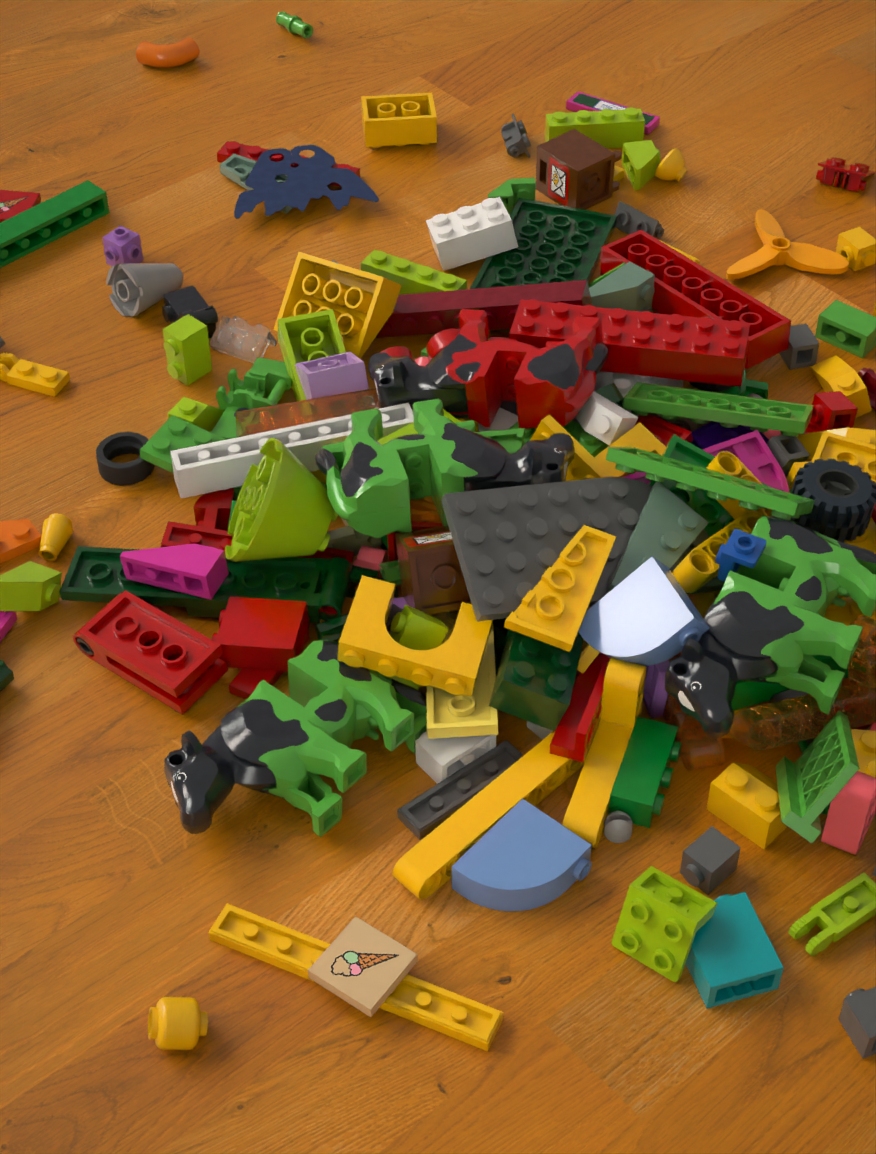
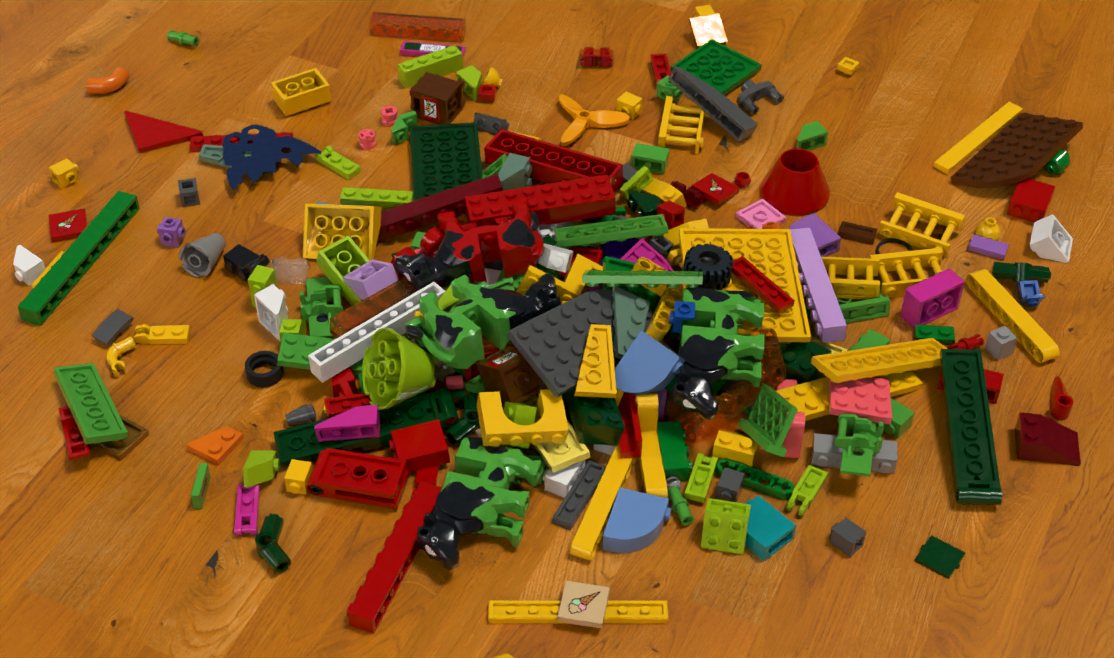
camera: 25 degrees left, 0 degrees up
(44, 145) = (64, 173): none -> yellow brick
(55, 534) = (251, 429): yellow cone -> none
(69, 617) = (298, 476): none -> yellow brick
(111, 798) = (393, 562): none -> red brick
(134, 536) = (301, 415): none -> dark grey cone
(177, 206) = (188, 192): none -> dark grey brick
(181, 374) = (271, 309): none -> white slope
(186, 126) = (155, 133): none -> red tile
(396, 221) = (338, 163): none -> lime plate
(452, 199) = (367, 139): none -> coral wheel
(472, 233) = (396, 159): white brick -> none
(499, 174) = (389, 115): none -> coral wheel
(515, 138) = (380, 84): dark grey hinge -> none
(608, 78) = (417, 27): none -> clear orange brick
(611, 863) = (680, 506): none -> bright green pin
(656, 182) = (487, 92): none -> red plate
(670, 829) = (701, 478): none -> lime plate
(767, 860) = (757, 475): none -> green beam
(800, 385) = (642, 203): none -> dark green slope
(805, 357) = (637, 182): none -> lime plate

